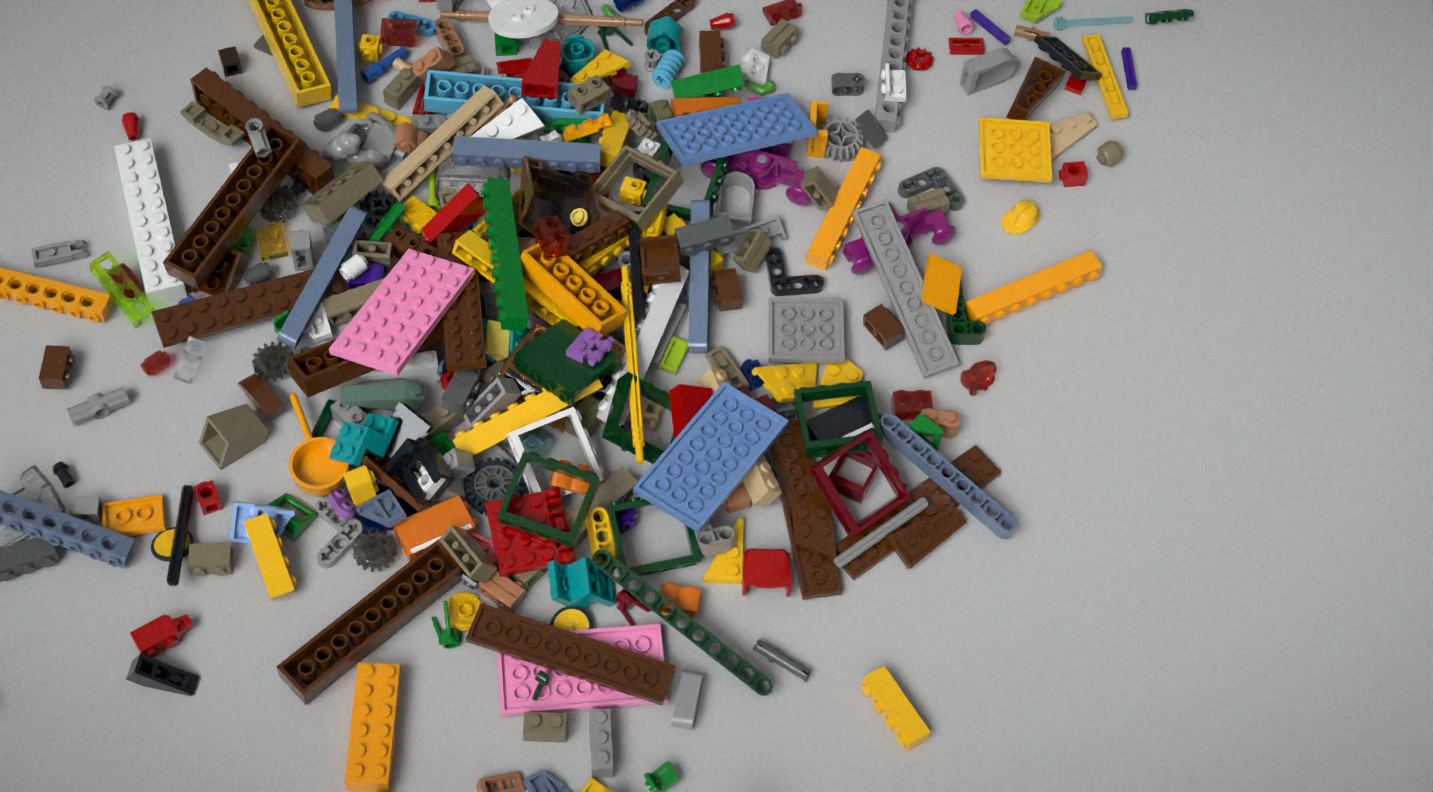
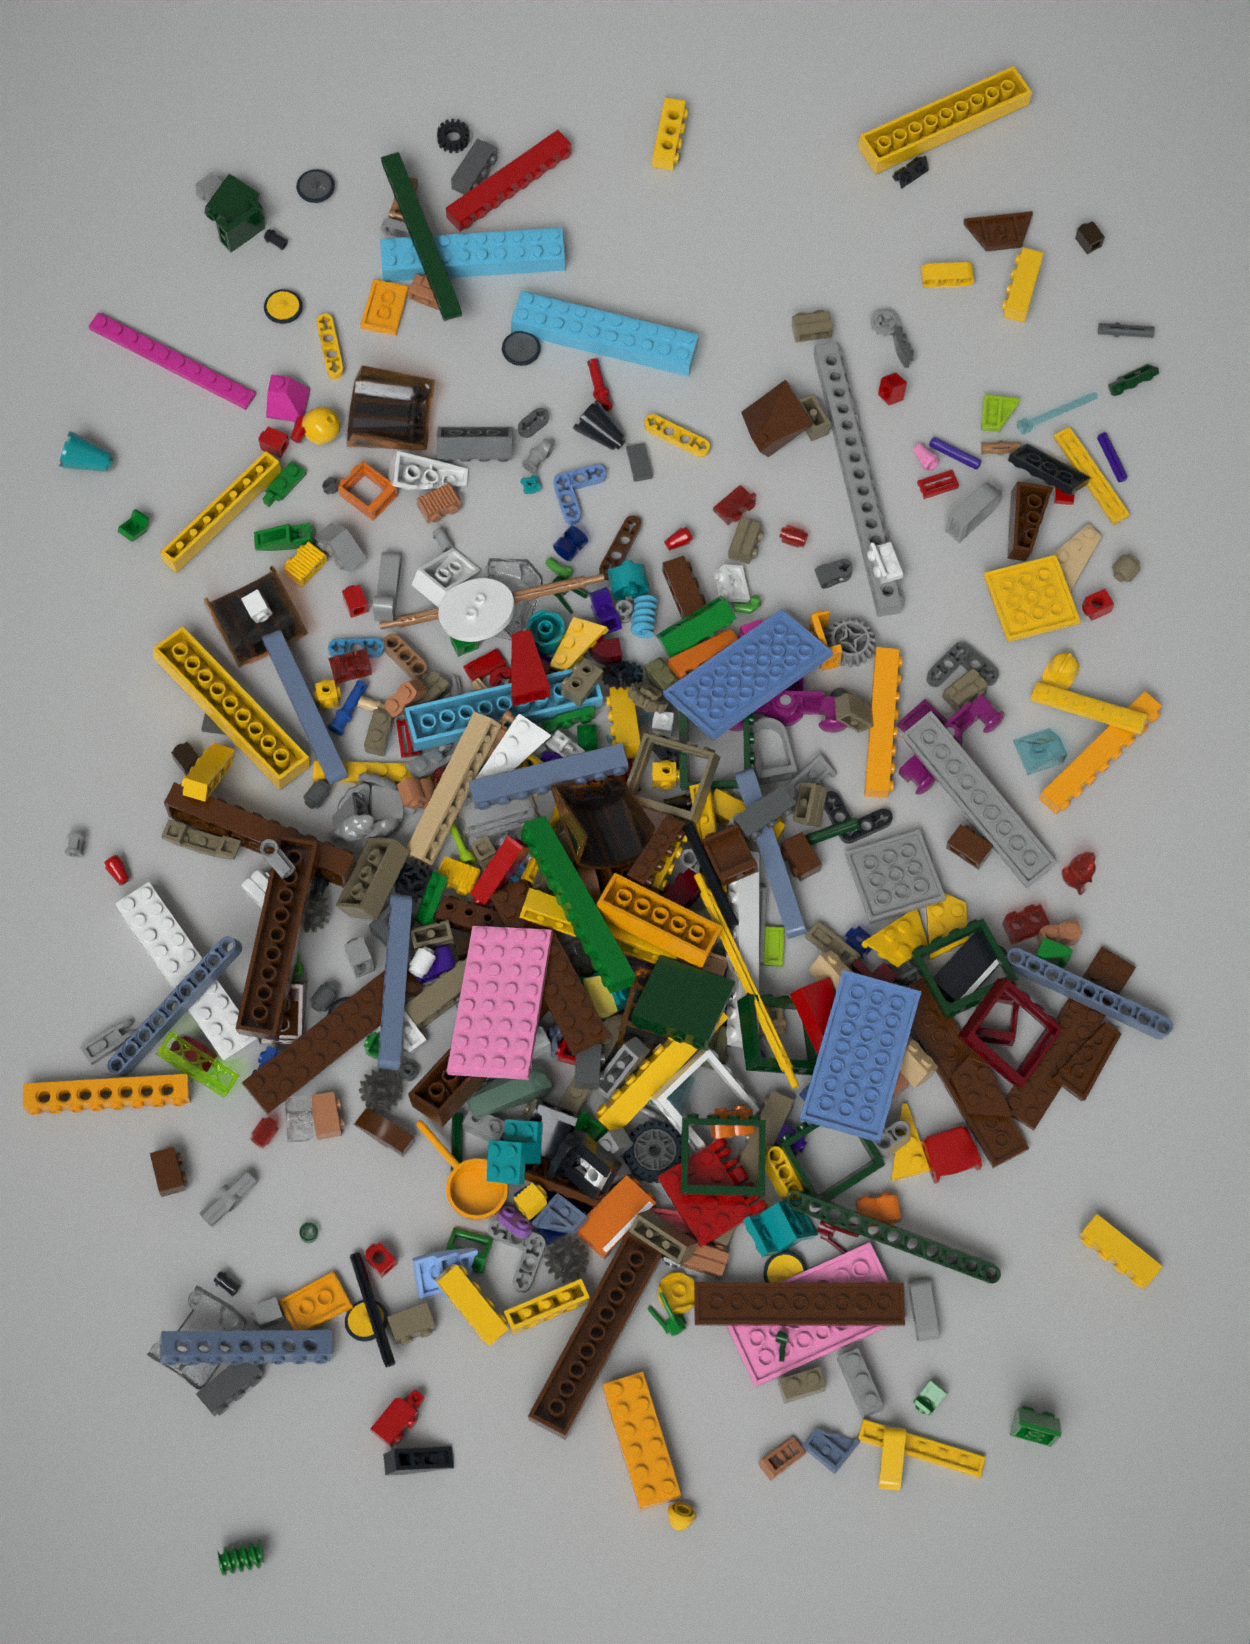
camera: 15 degrees left, 10 degrees up
(124, 234) = (165, 1010): none -> sand blue beam
(157, 452) = (310, 1239): none -> clear green bush
(216, 366) = (325, 1115): none -> nougat brick
(232, 435) = (376, 1185): dark tan slope -> none
(239, 70) = (208, 772): none -> yellow brick
(271, 241) = (320, 955): clear yellow plate -> none
(336, 582) = (546, 1306): none -> yellow brick
(552, 236) = (620, 873): clear red brick -> none
(579, 217) = (630, 832): light yellow plate -> none
(585, 345) = (696, 981): medium lavender plate -> none
(586, 127) = (591, 719): light orange hinge -> none
(635, 53) = (604, 610): none -> dark purple brick
(764, 278) = (832, 831): none -> dark green axle
(782, 660) = (997, 1238): dark grey pin -> none
(823, 47) = (793, 536): none -> clear red brick
(871, 128) = (878, 620): dark grey tile -> none
(879, 533) = (1045, 1074): light grey axle -> none
(918, 64) = (896, 524): red gear -> none
(941, 284) = (1013, 783): light orange tile -> none
(961, 325) = (1035, 801): dark green beam -> none
(979, 273) = (1040, 751): none -> clear light blue slope
(1035, 249) = (1088, 707): none -> yellow plate

